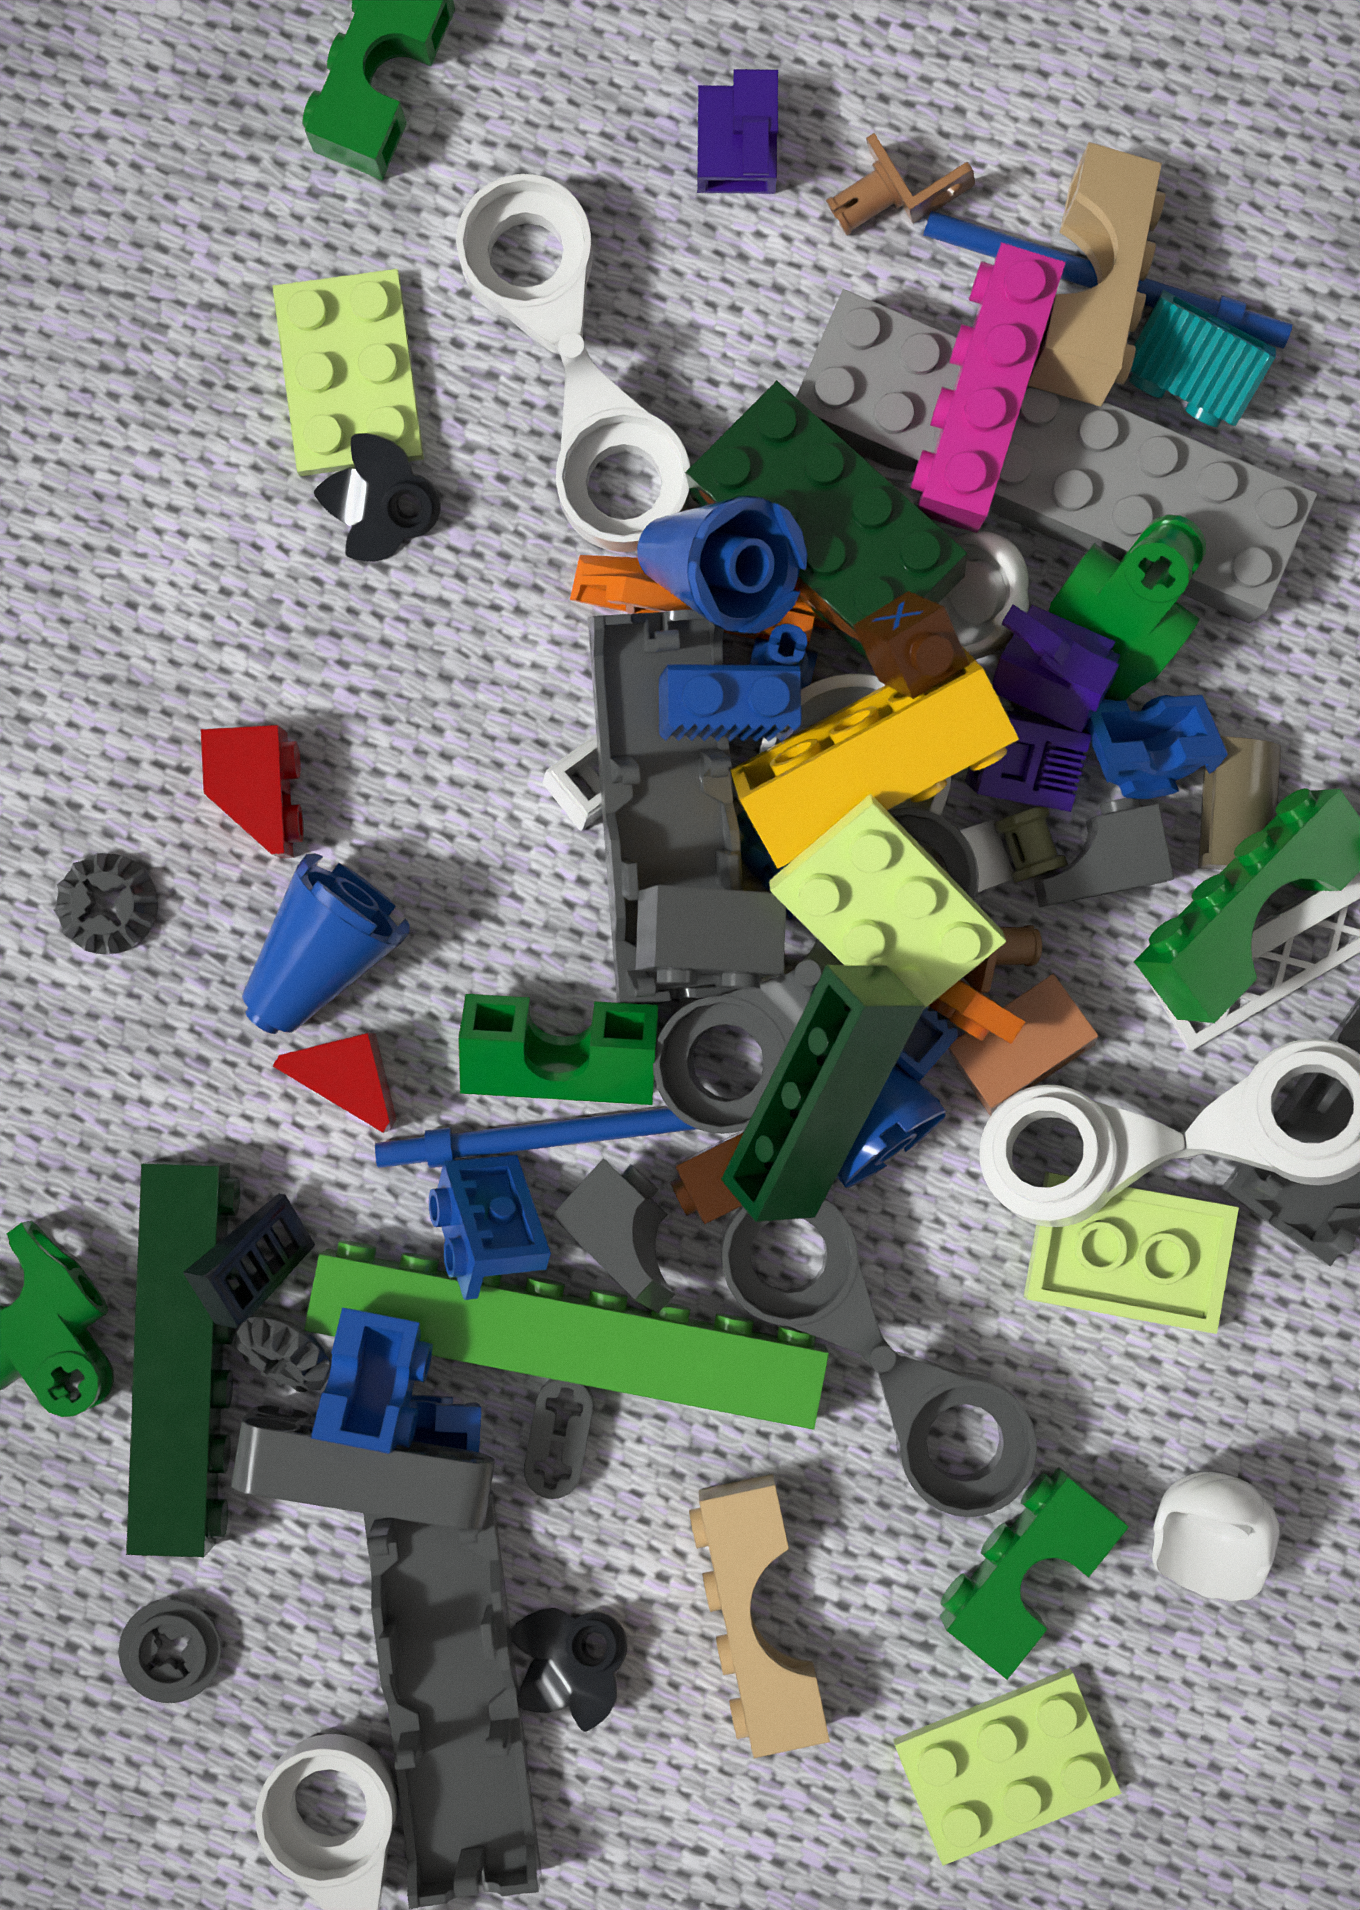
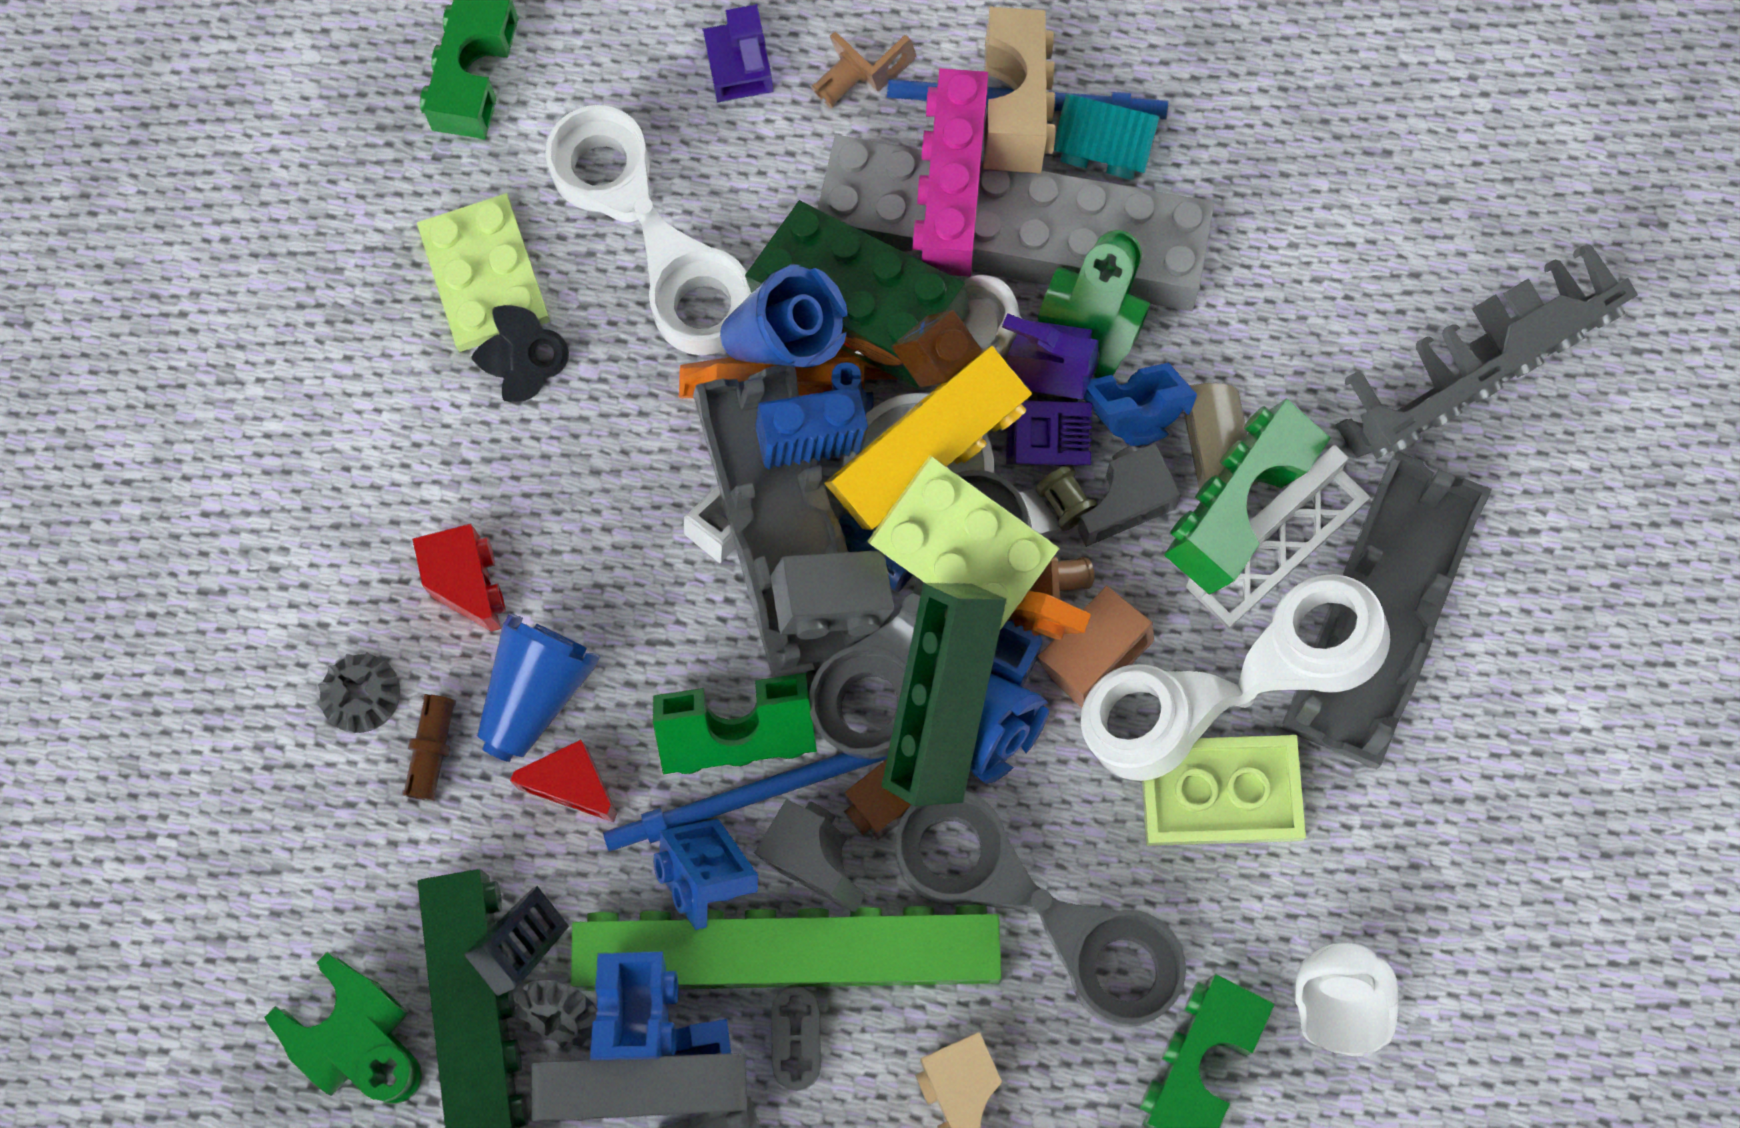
camera: 10 degrees left, 15 degrees down
(181, 994) = (429, 747): none -> reddish brown pin

